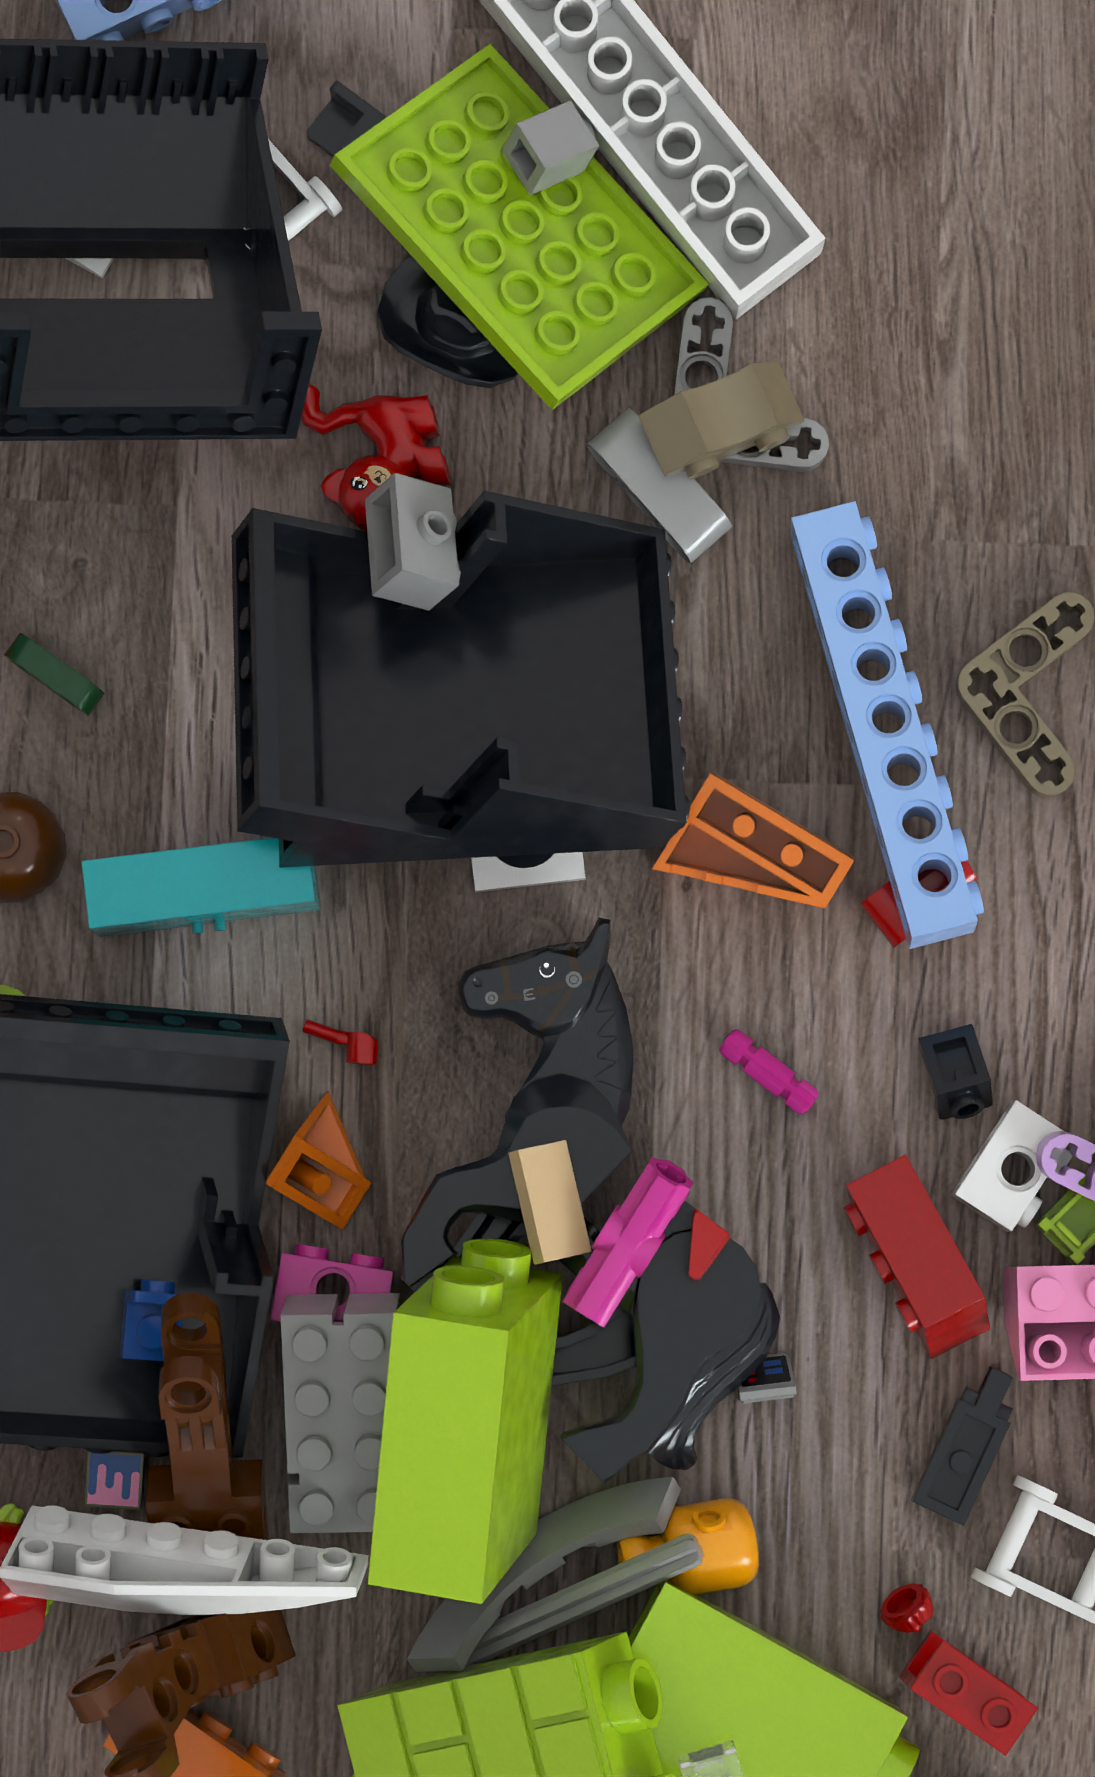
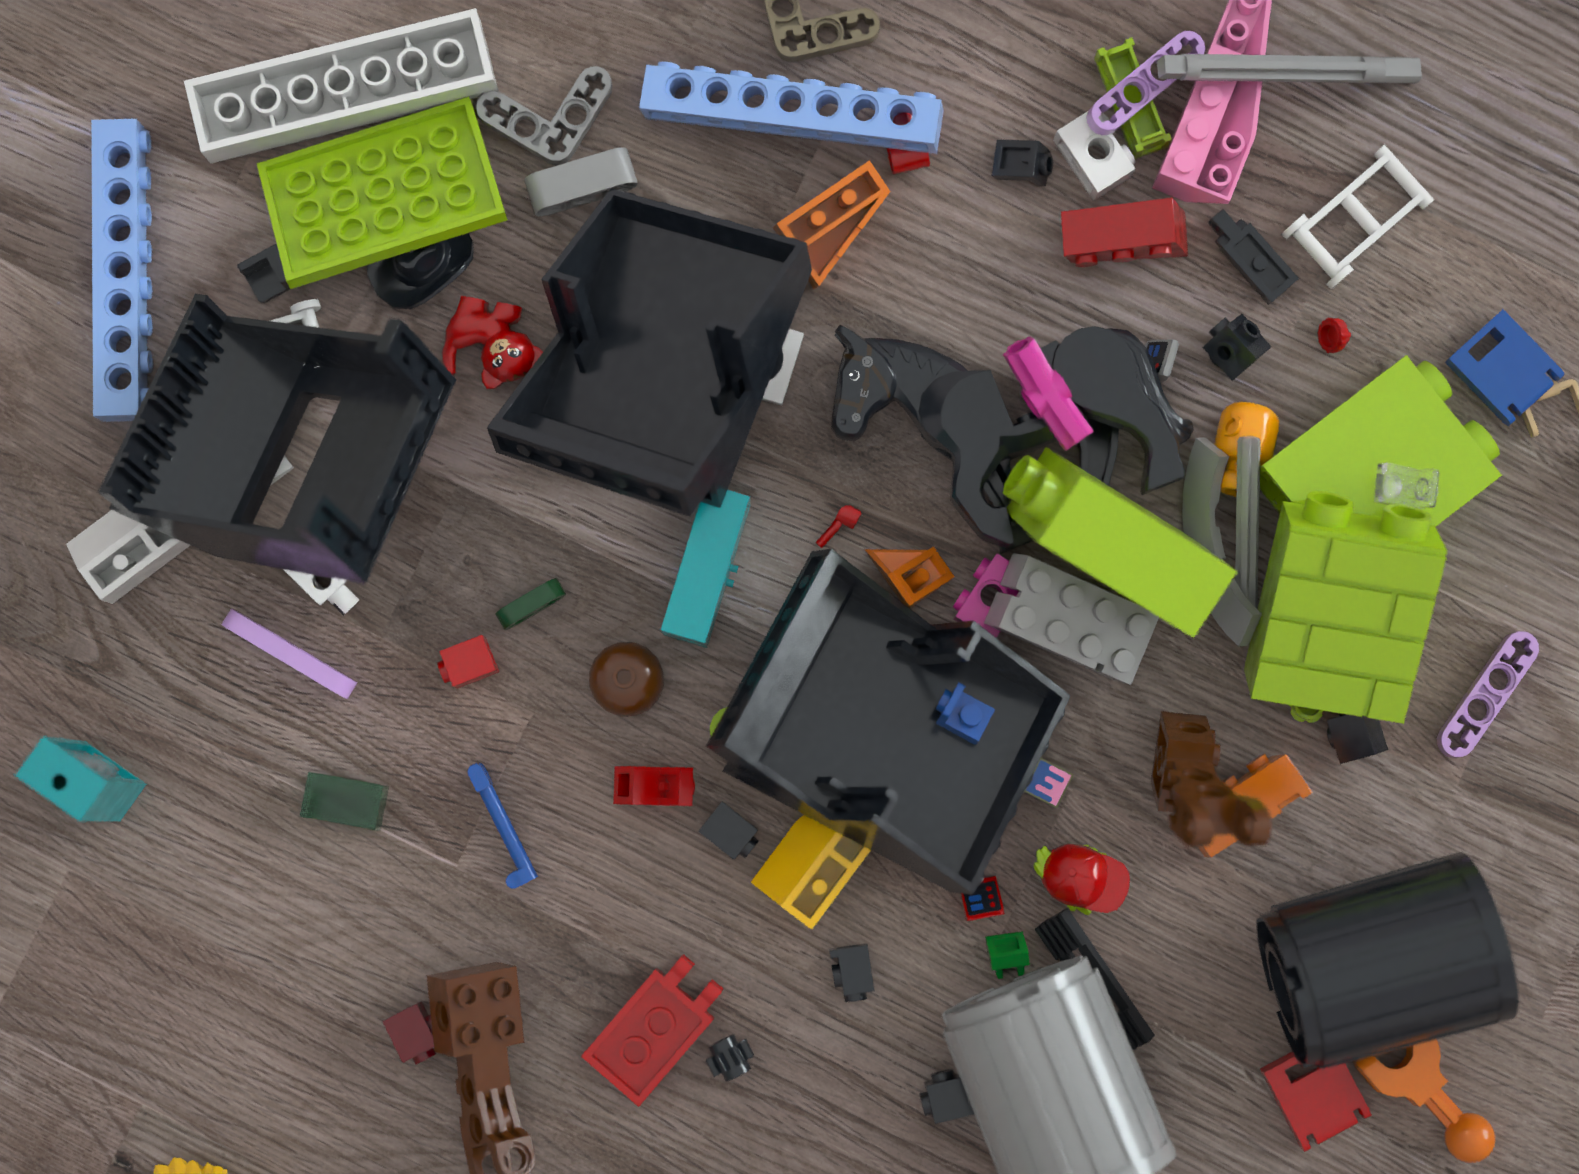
camera: 65 degrees left, 0 degrees up
(170, 1567) = (1126, 760): white wedge -> none
(203, 1483) = (1091, 727): reddish brown brick -> none
(412, 541) = (551, 341): light grey brick -> none
(549, 1202) = (1001, 431): tan tile -> none
(550, 147) = (341, 150): light grey brick -> none
(705, 1244) = (1069, 348): red slope -> none
(722, 419) = (559, 122): dark tan brick -> none
(768, 1071) = (971, 275): dark pink axle -> none
(828, 1477) = (1235, 345): none -> black brick
(967, 1693) = (1403, 316): red panel -> none

